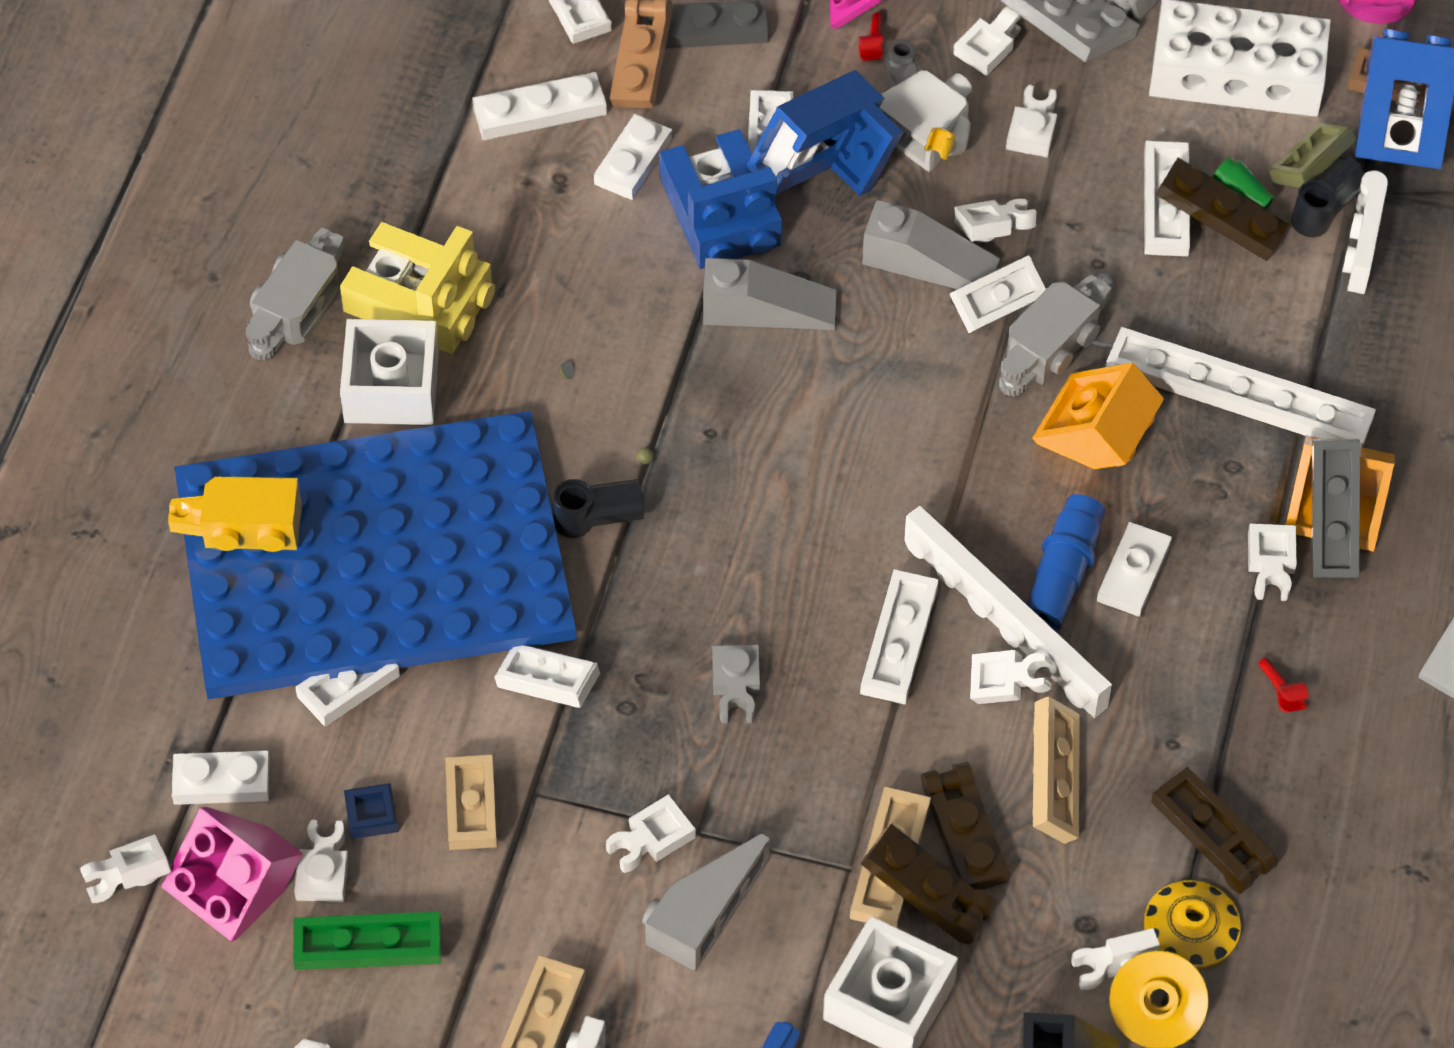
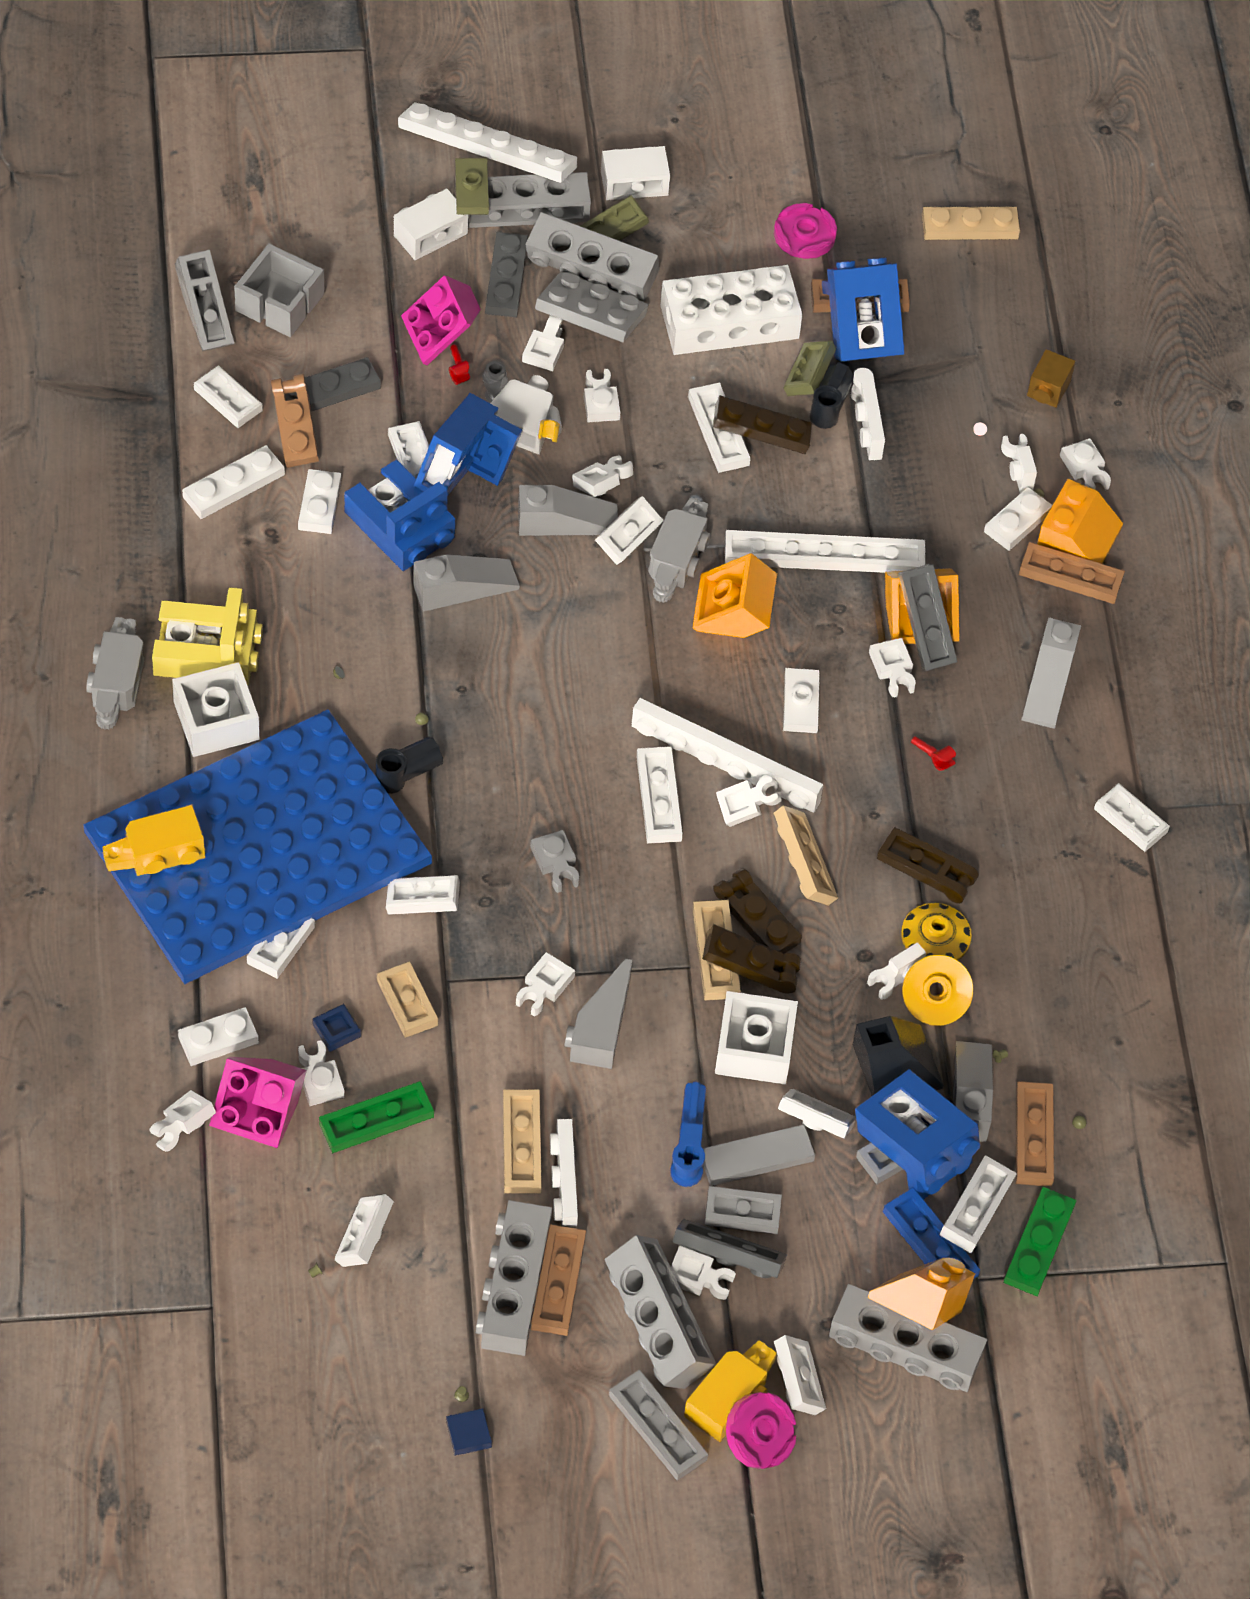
camera: 25 degrees left, 0 degrees up
(1066, 558) = (753, 704): blue piece -> none
(1243, 181) = (769, 400): green cone -> none

